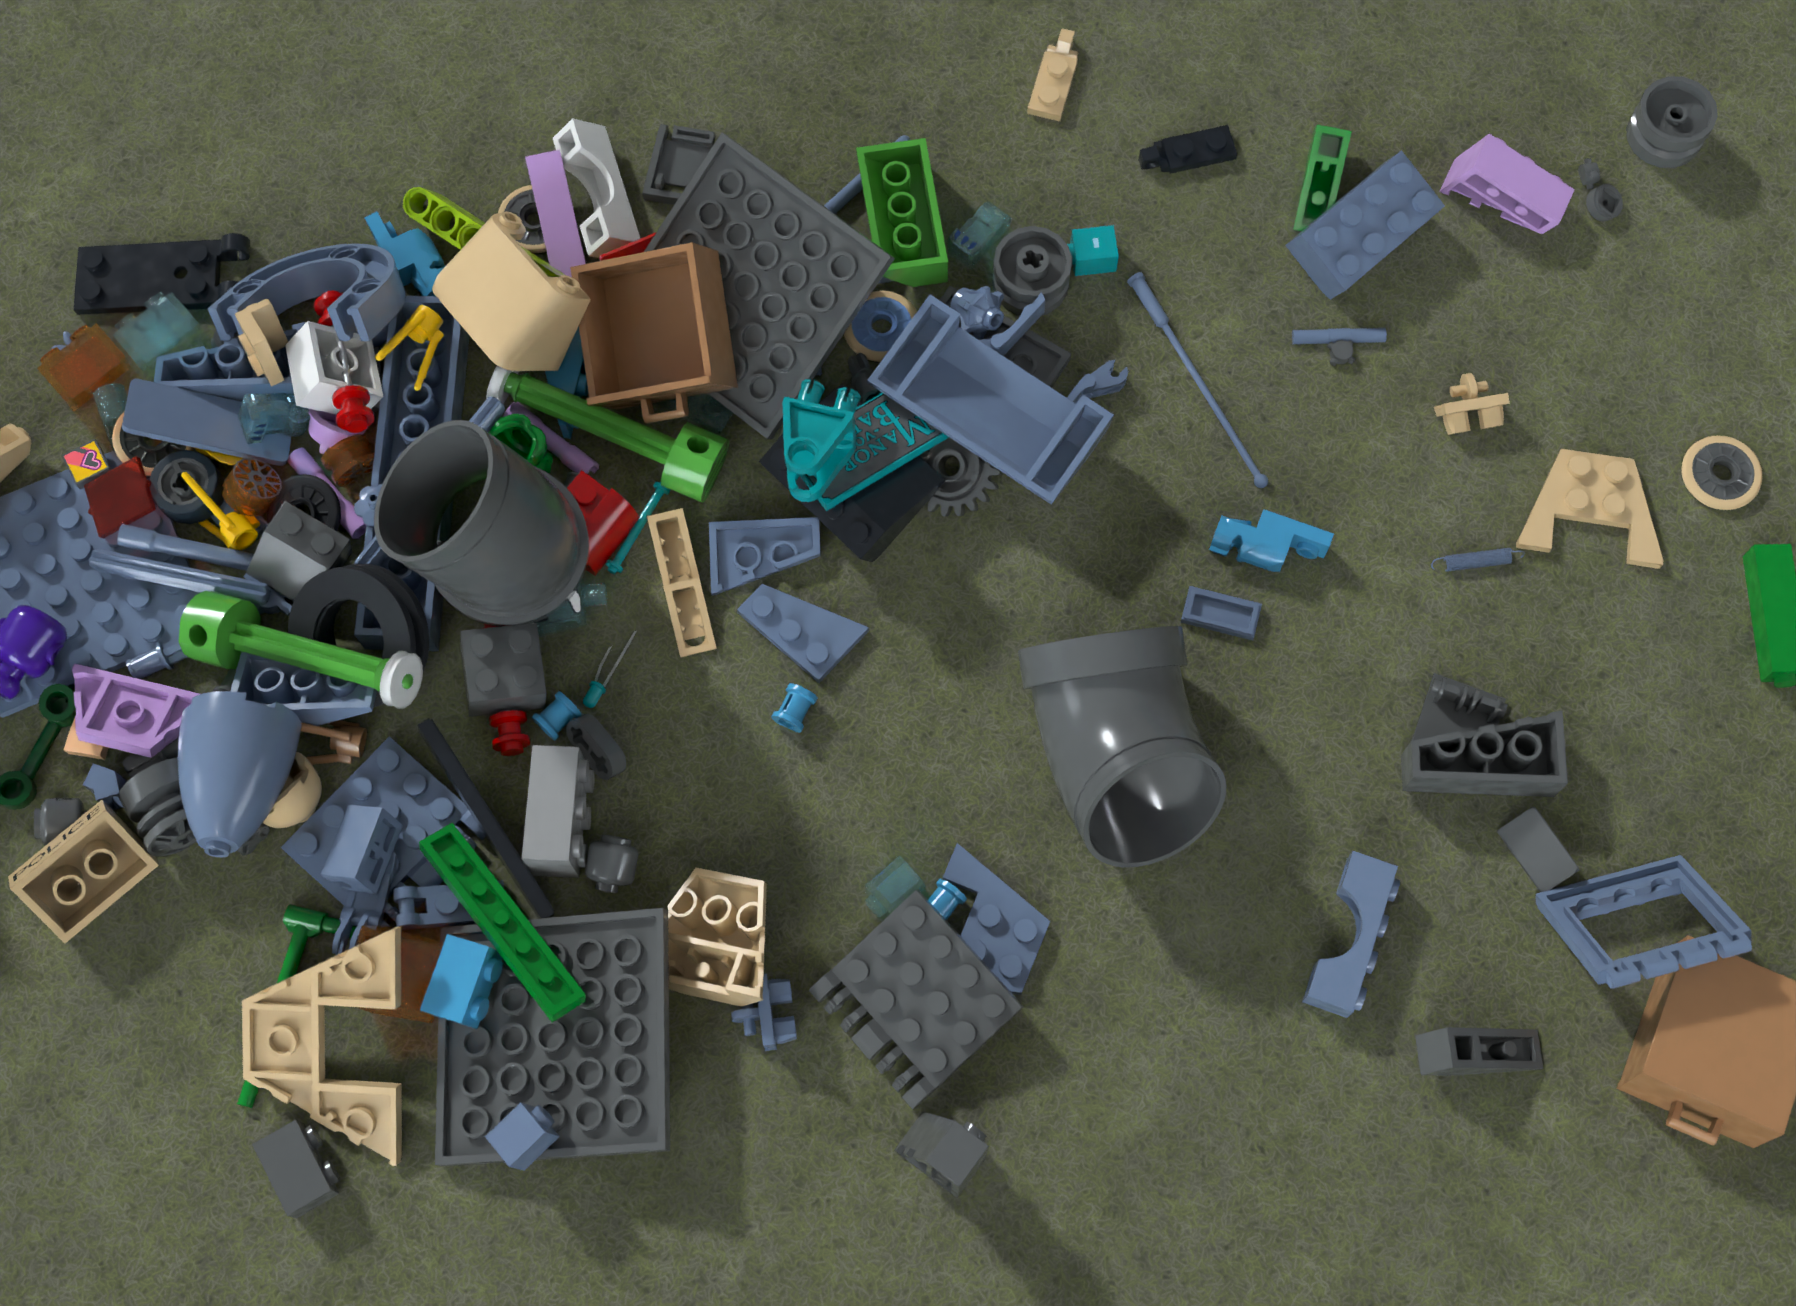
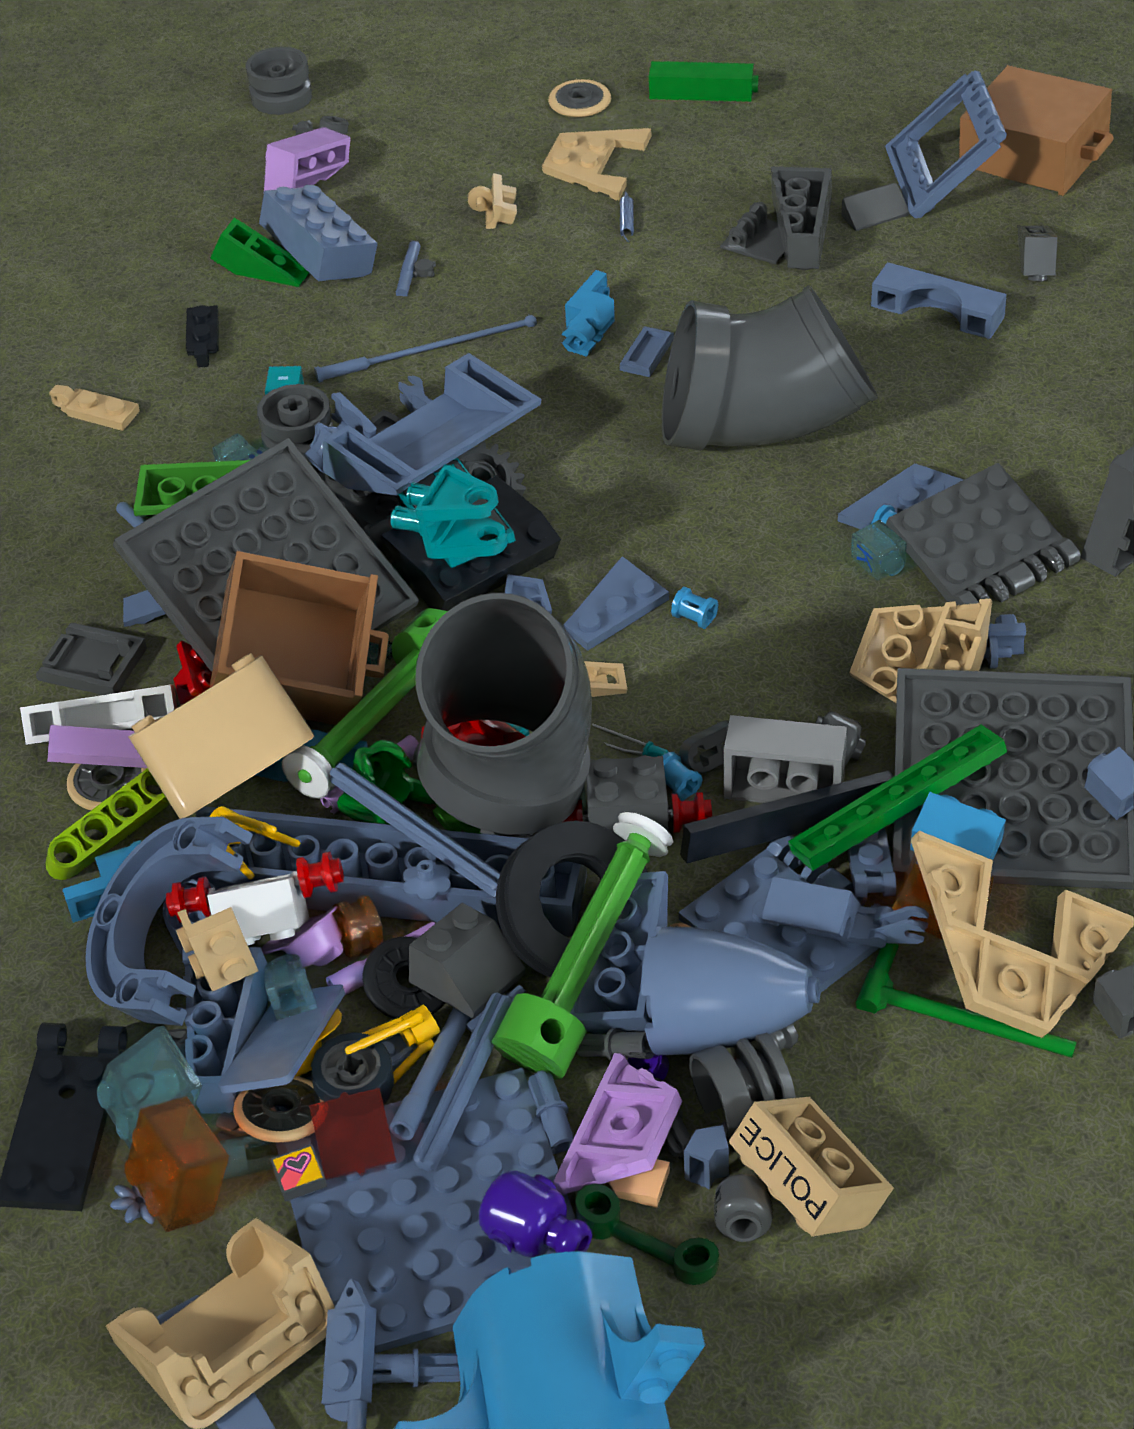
camera: 80 degrees left, 25 degrees down
(249, 489) = (371, 1007): clear orange wheel -> none

